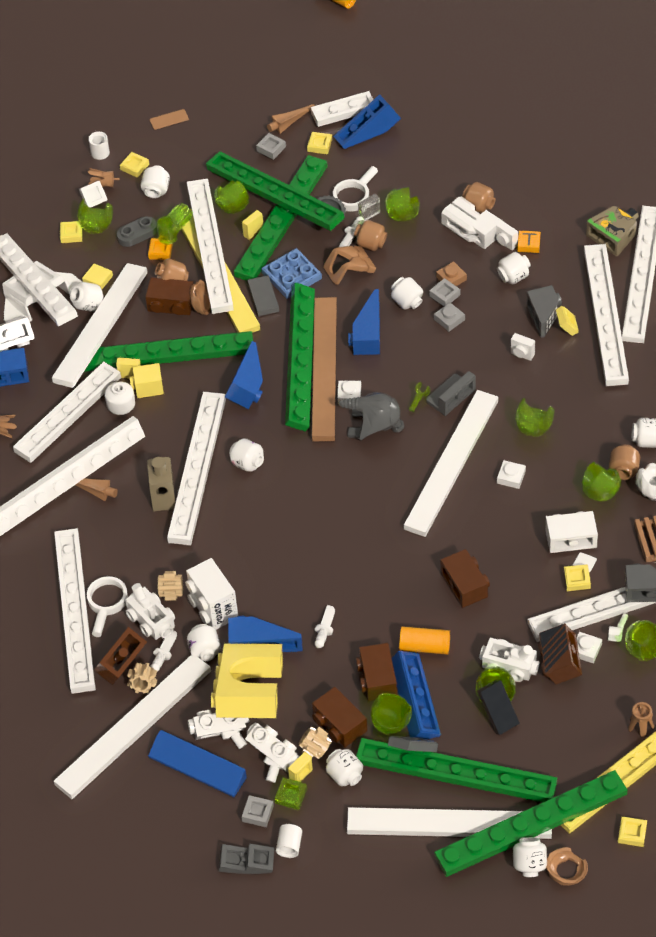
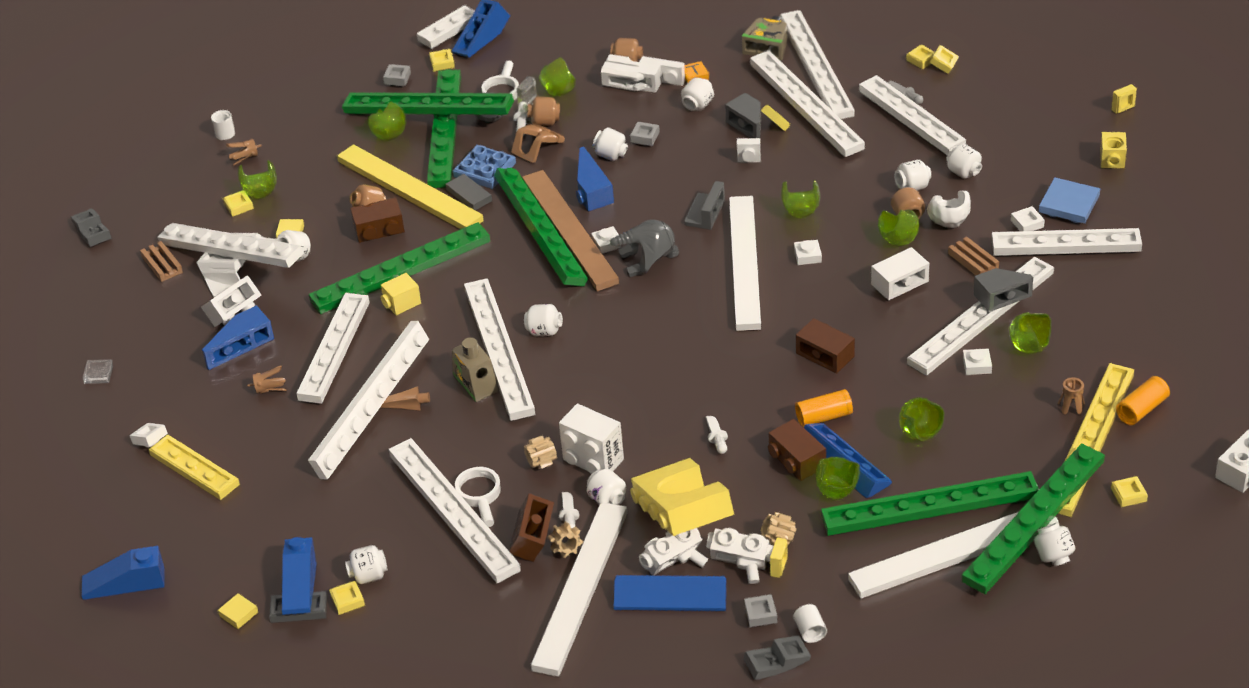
camera: 25 degrees left, 10 degrees down
(93, 194) = (244, 159): white plate -> none
(99, 325) = (321, 265): white tile -> none
(120, 398) = (382, 316): white head -> none
(126, 365) = (373, 289): light yellow tile -> none
(134, 164) = (267, 131): light yellow tile -> none
(137, 231) = (306, 182): dark grey plate -> none
(150, 613) = (534, 479): white brick -> none
(155, 181) = (300, 135): white head -> none
(159, 251) = (339, 188): light orange tile -> none
(169, 119) = (278, 87): medium nougat sticker -> none
(170, 225) = (342, 160): clear neon green piece -> none
(201, 301) = (411, 213): medium nougat piece -> none
(210, 246) = (393, 166): white plate -> none
(247, 380) = (501, 258): blue slope -> none
(252, 224) = (421, 139): light yellow tile -> none
(257, 631) = (652, 457): blue slope -> none
(284, 120) = (396, 52): medium nougat piece -> none
(290, 793) = (783, 583): clear neon green plate -> none
(339, 717) = (787, 498): reddish brown brick -> none
(344, 767) = (822, 539): white head -> none
(413, 743) = (877, 491): dark grey tile -> none
(418, 396) = (676, 220): clear neon green hand -> none
(449, 317) = (661, 152): light grey plate -> none
(452, 273) = (639, 115): medium nougat plate -> none
(498, 707) = (936, 433): black tile -> none
(517, 660) = (904, 389): white brick -> none
(560, 654) = (961, 371): reddish brown brick -> none
(562, 855) = (1105, 539): medium nougat piece -> none
(577, 577) = (928, 310): light yellow tile -> none
(584, 559) = (924, 297): white sticker -> none
(615, 633) = (995, 340): white hand -> none

